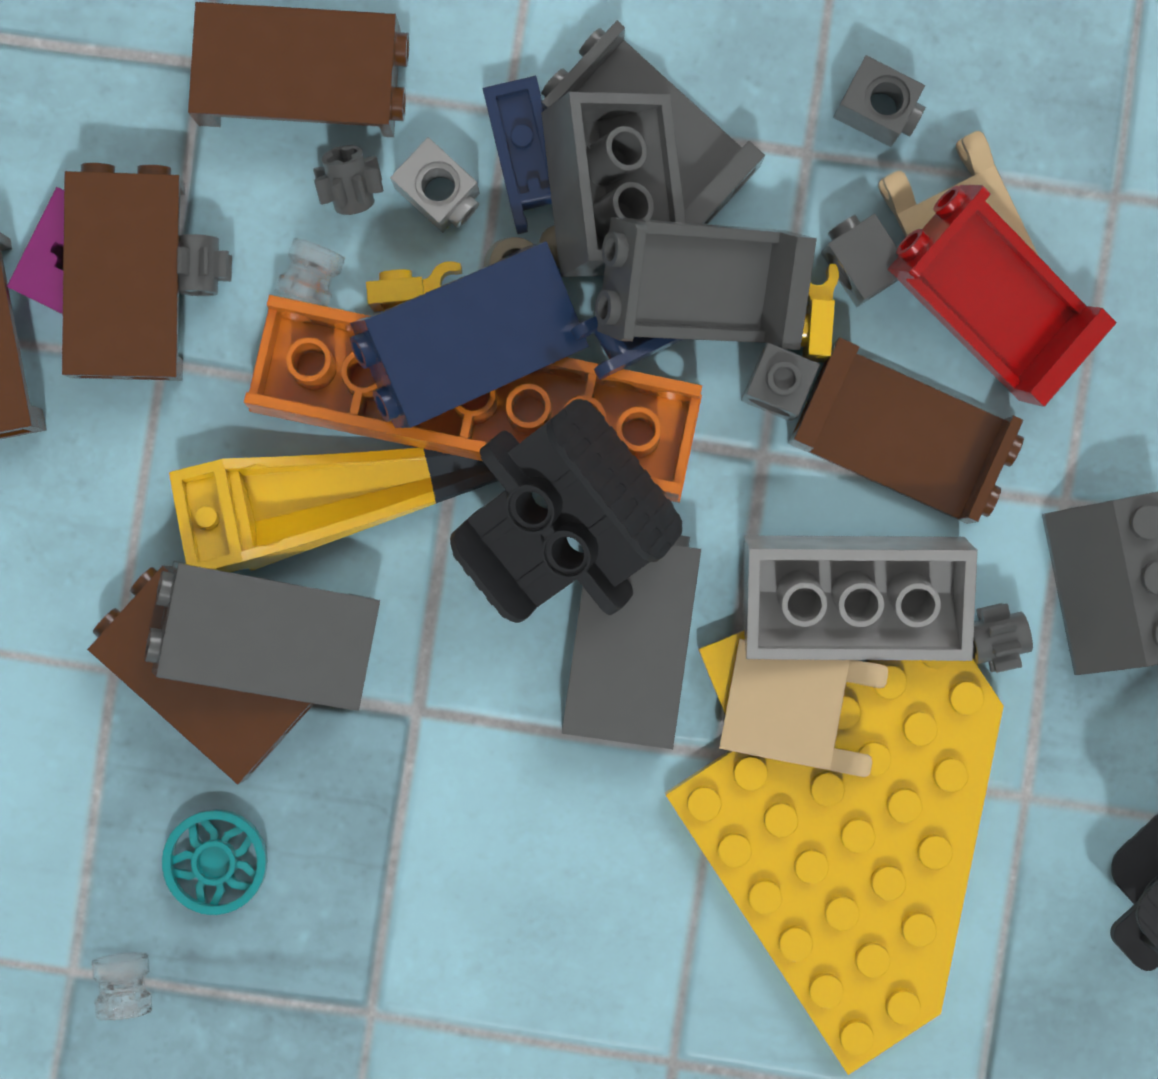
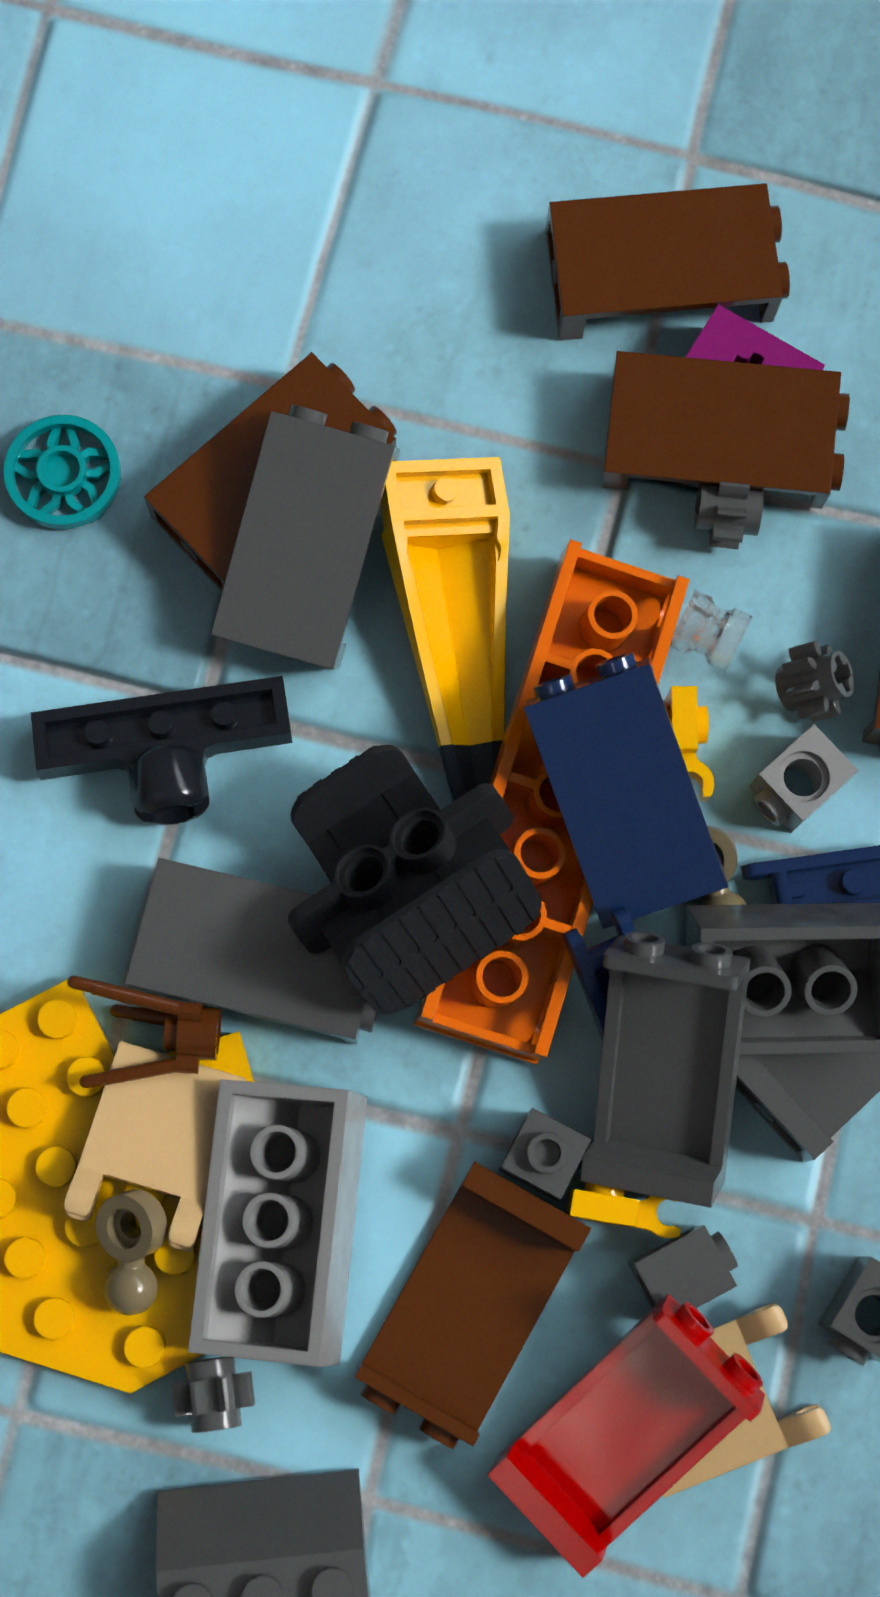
camera: 95 degrees right, 10 degrees down
(453, 743) = (162, 741): none -> black plate
(706, 691) = (188, 1030): none -> reddish brown plant
(878, 719) = (131, 1283): none -> dark tan plate

